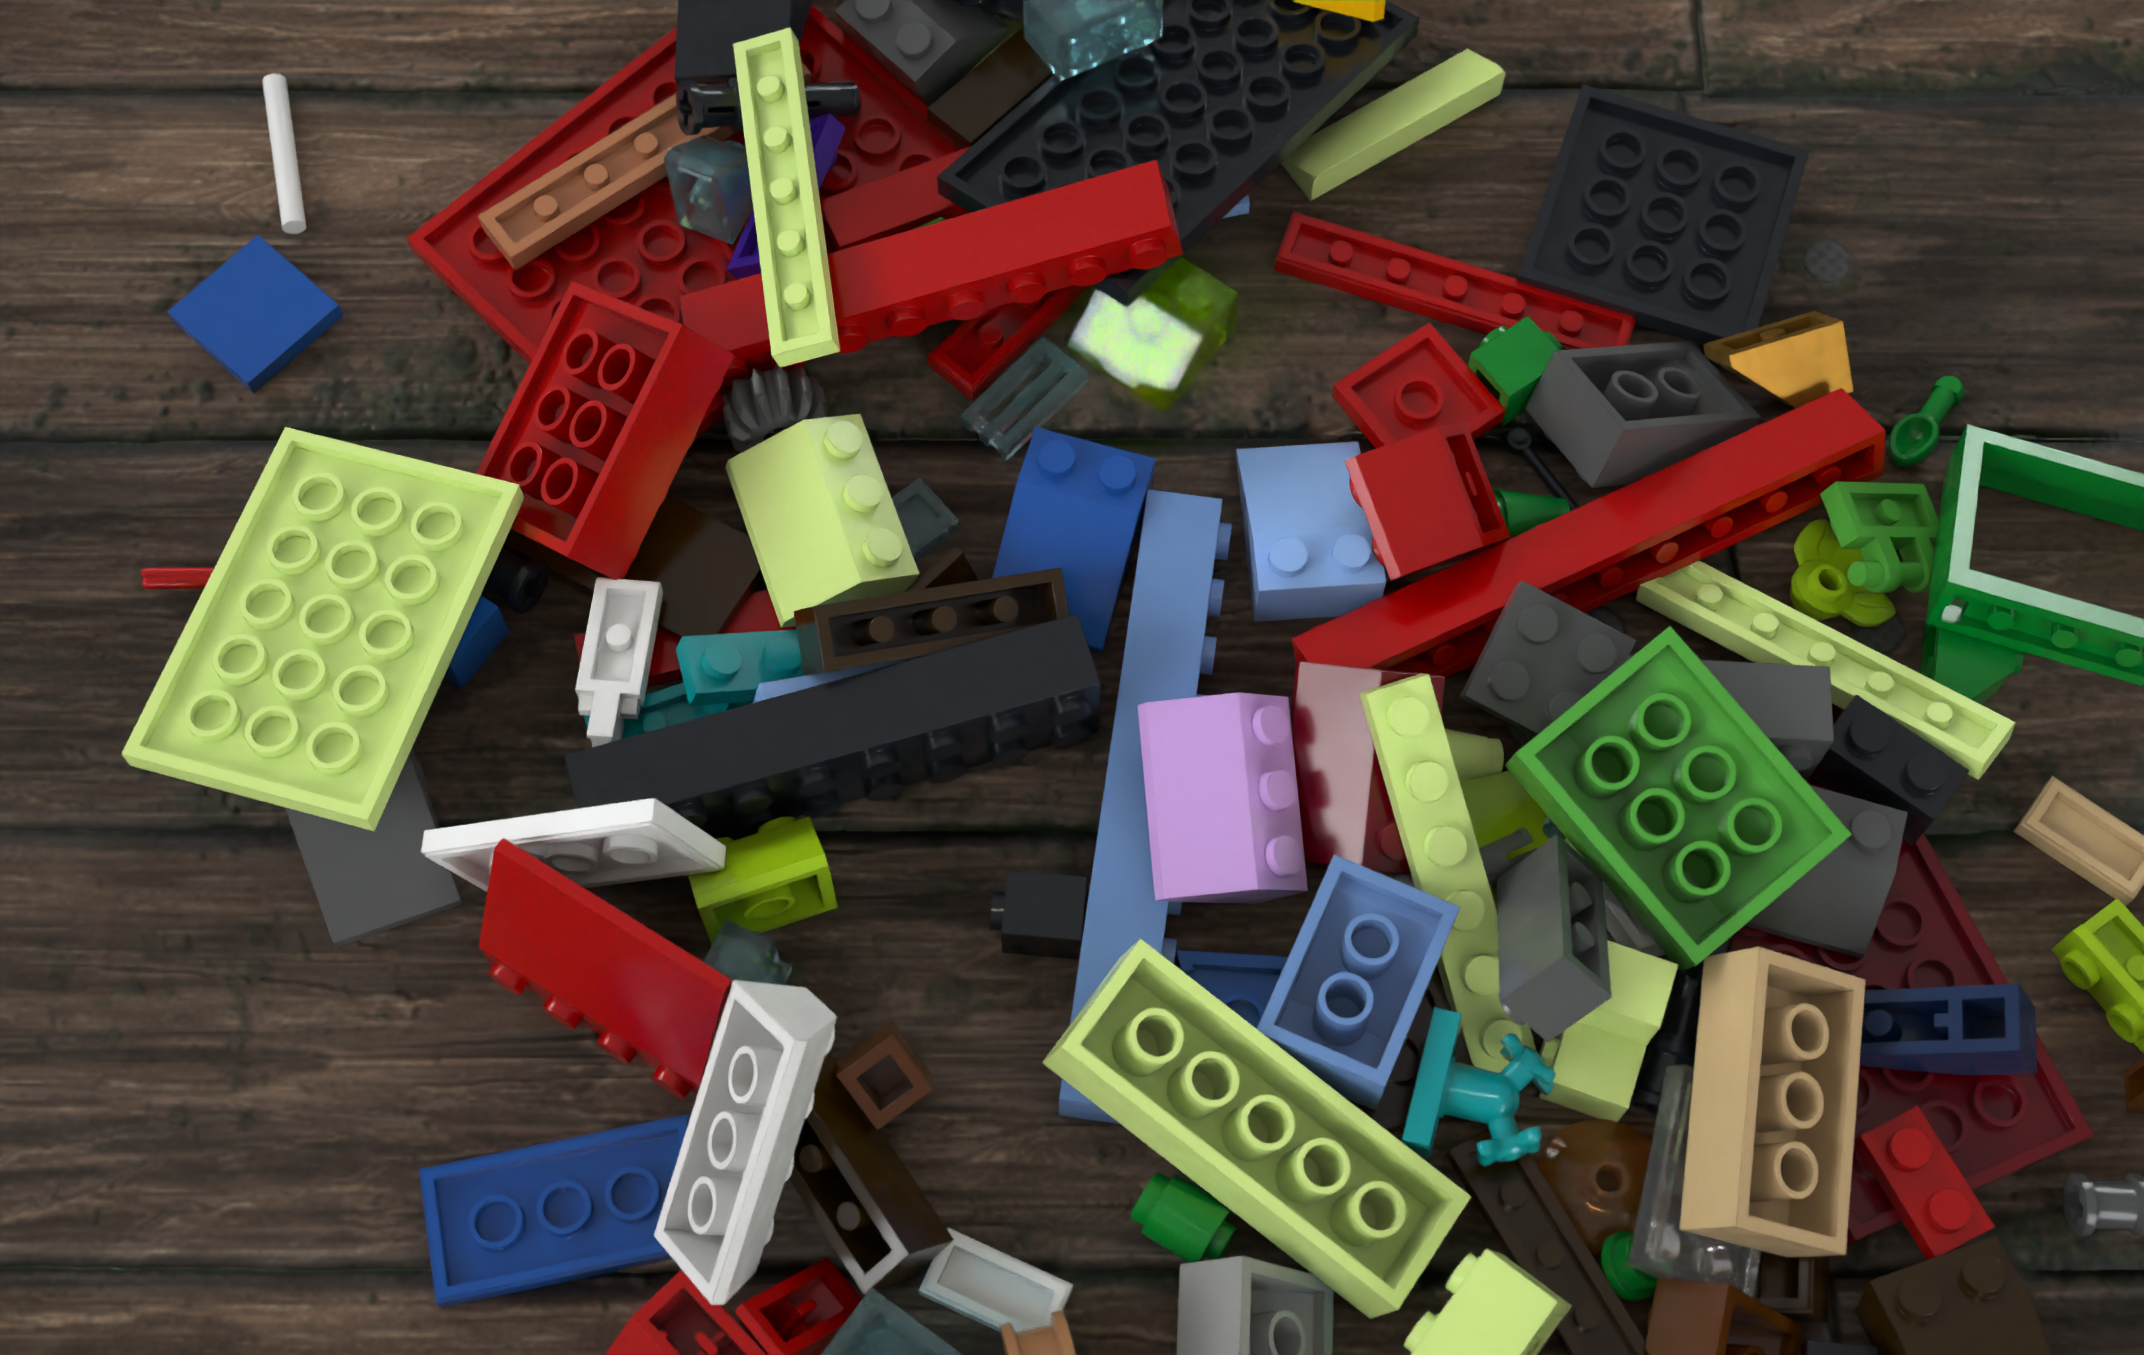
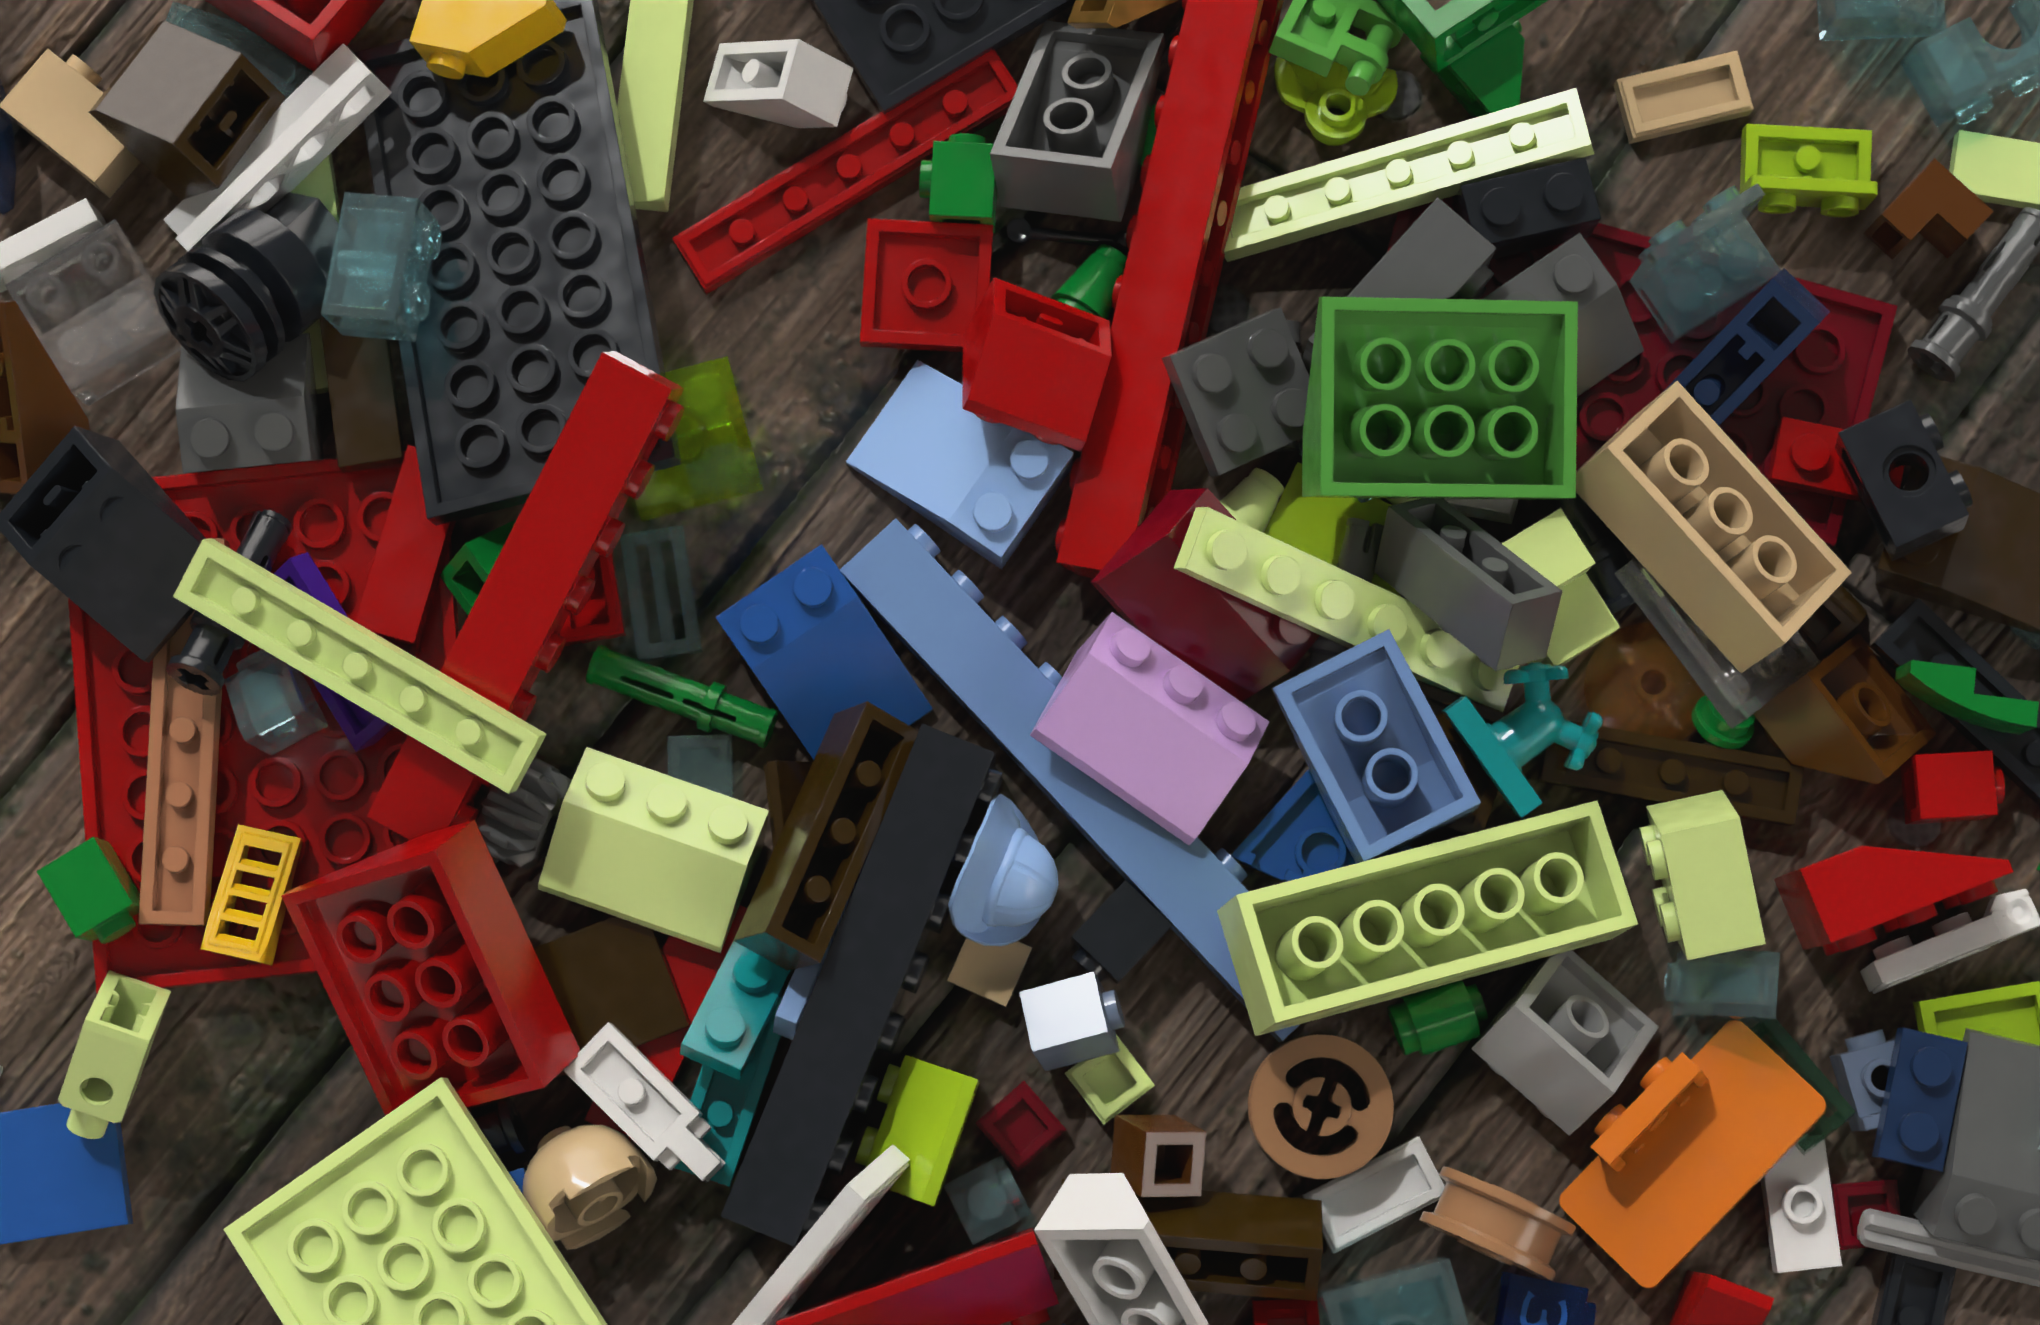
camera: 50 degrees left, 15 degrees up
(365, 266) = (111, 1053): none -> yellowish green torso
(478, 169) = (93, 891): none -> green brick
(518, 666) = (584, 1181): none -> tan cylinder
(536, 267) = (223, 912): none -> yellow slope
(827, 961) = (1020, 1126): none -> dark red tile
(920, 1001) = (1110, 1082): none -> yellowish green tile
(937, 840) = (990, 969): none -> tan tile
(939, 926) = (1071, 1020): none -> brick
(972, 508) = (705, 704): none -> green pin
(1009, 779) = (1004, 880): none -> light blue hat
(1012, 1130) = (1369, 1124): none -> medium nougat wheel
(1474, 196) = (779, 82): none -> white slope
(1936, 1262) = (1901, 517): none -> black brick
(1979, 929) = (1706, 266): none -> clear light blue bracket

